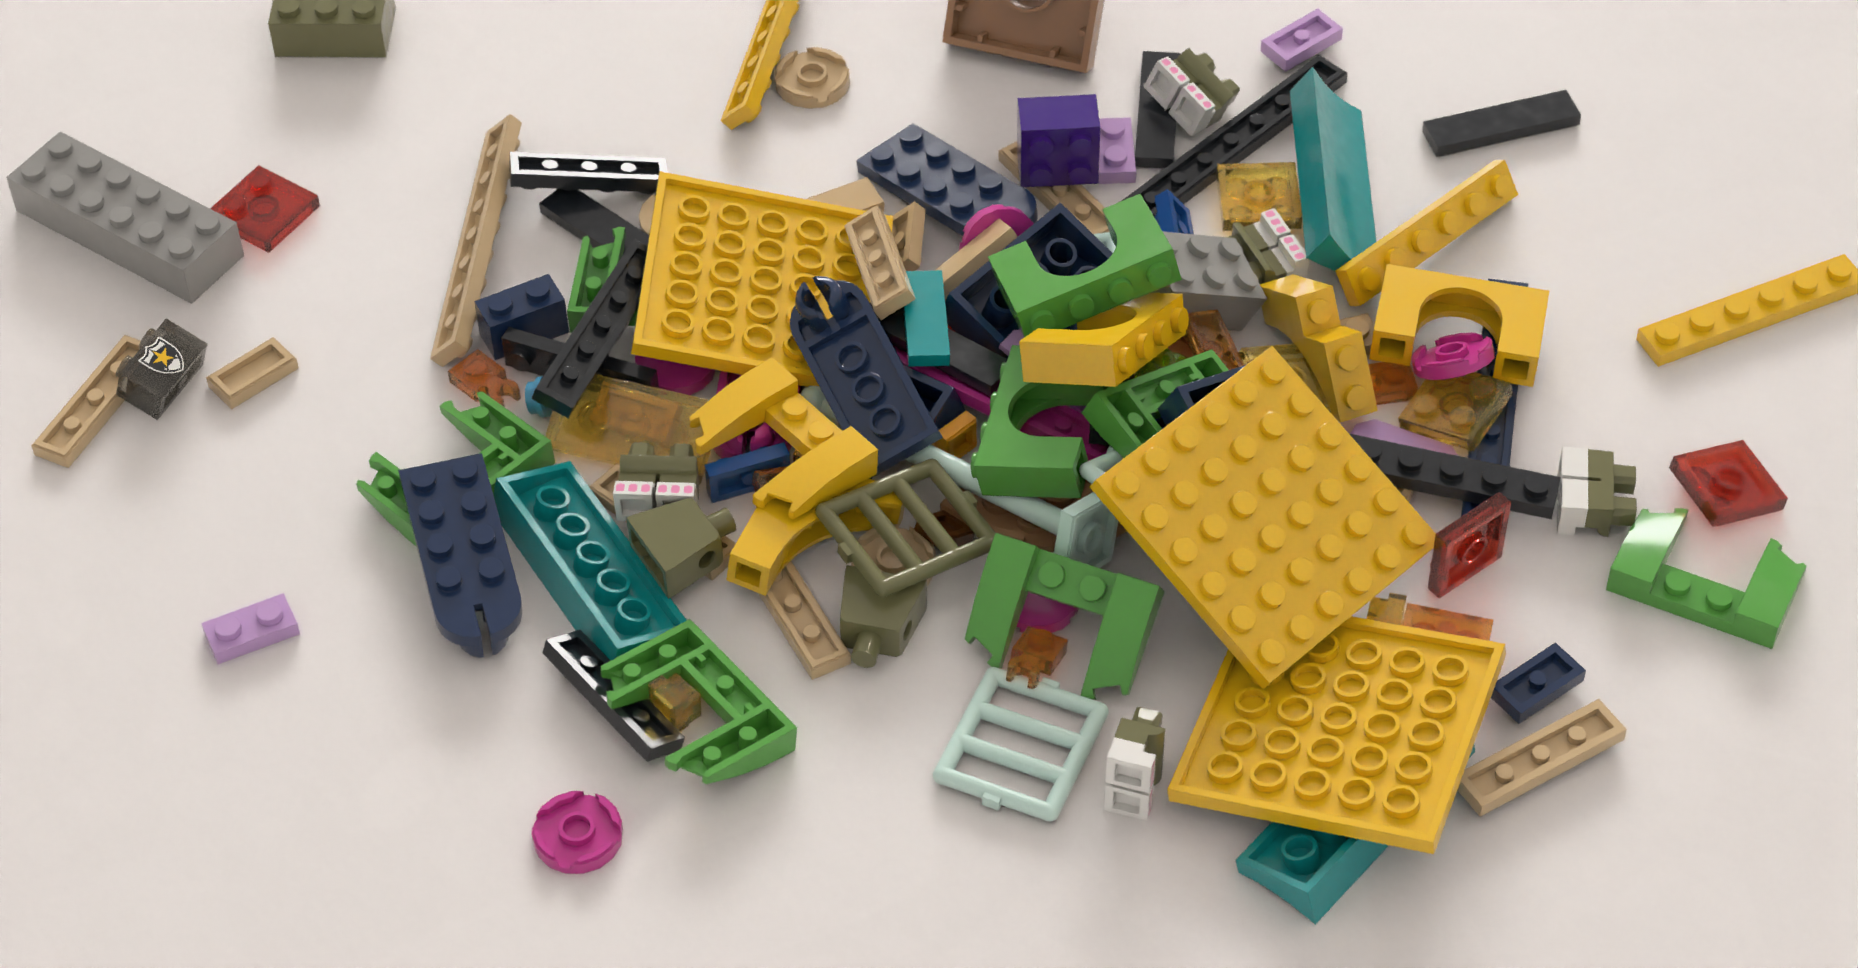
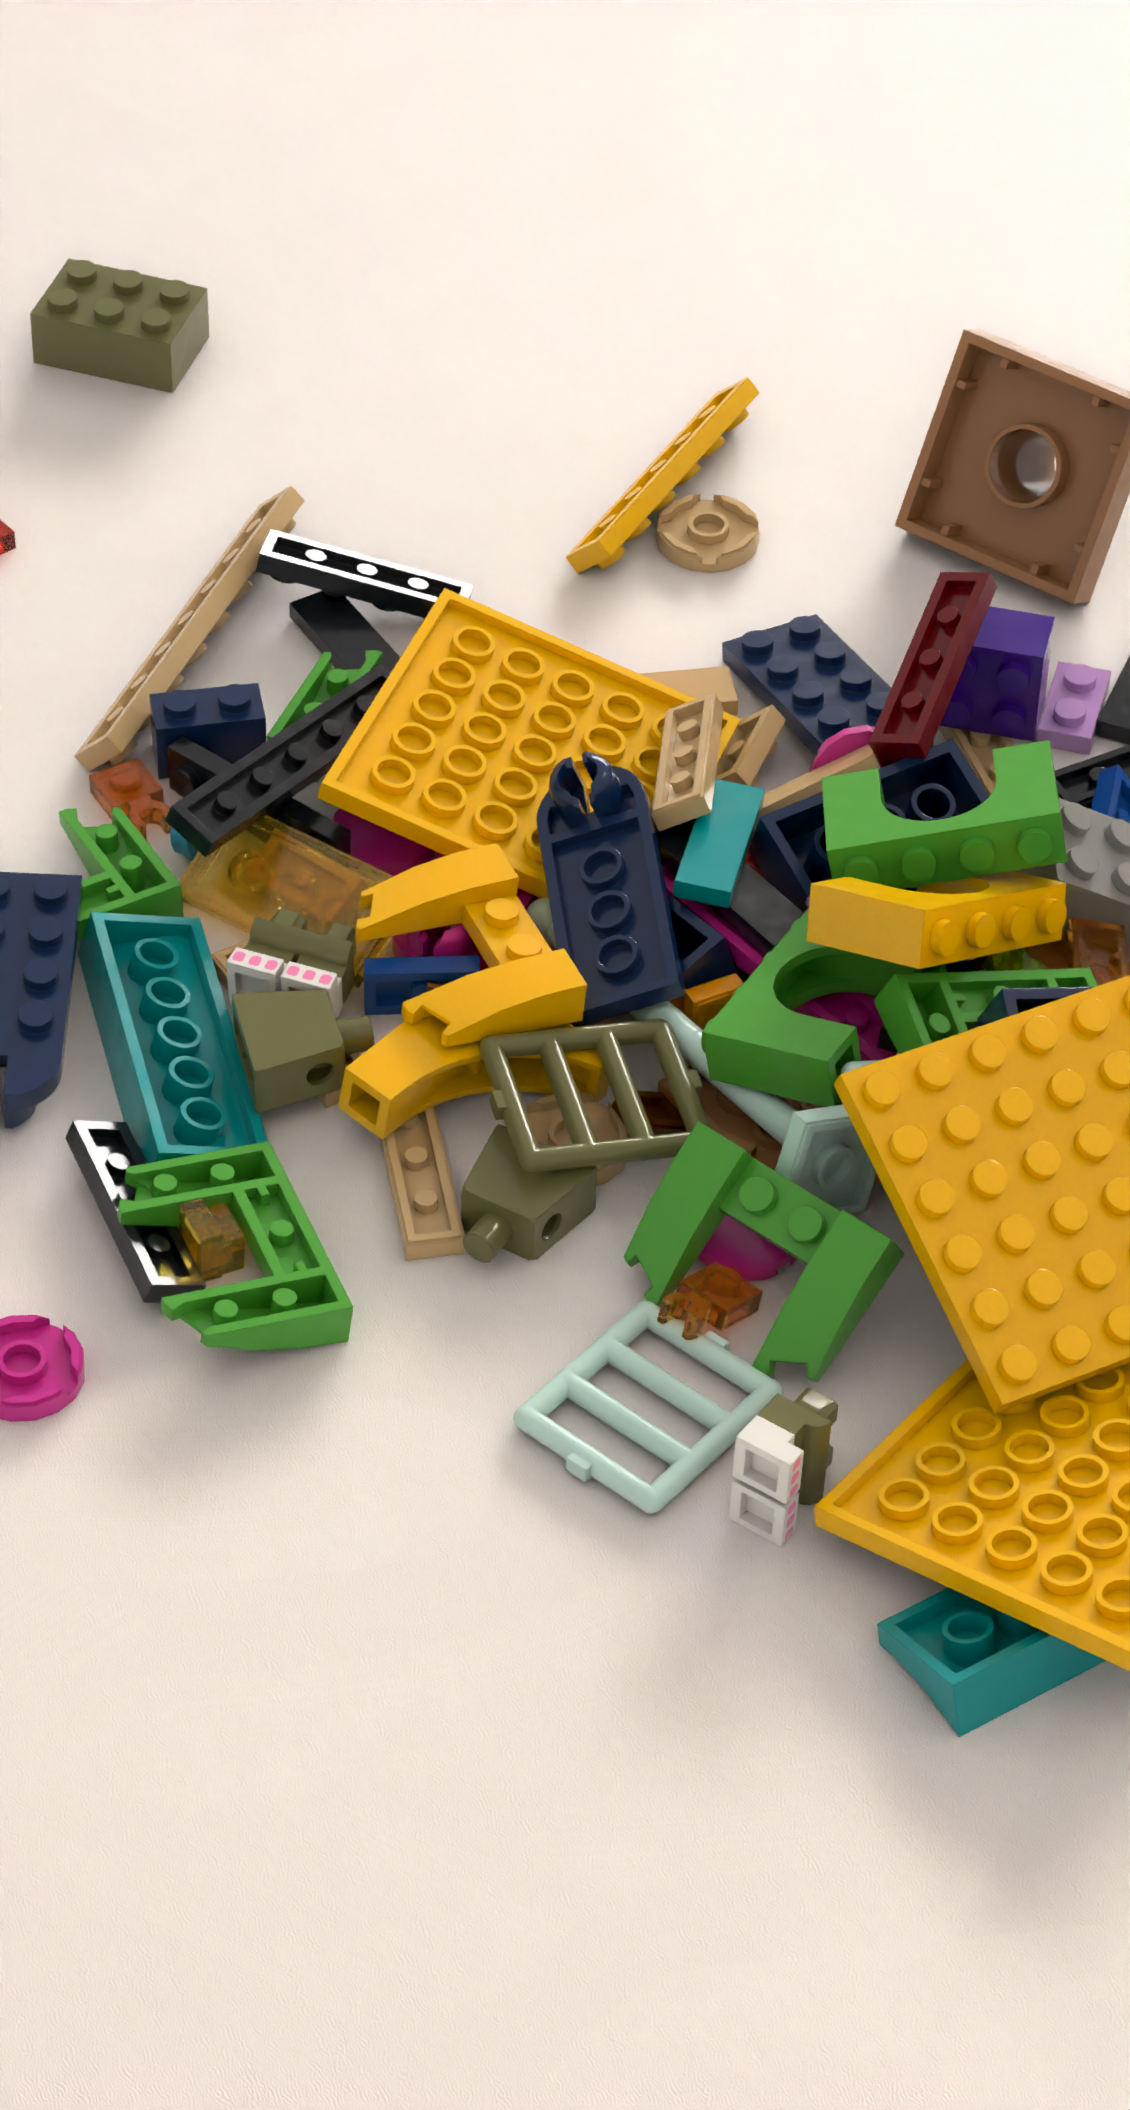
camera: 15 degrees right, 5 degrees down
(1030, 153) = (932, 666): none -> dark red hinge

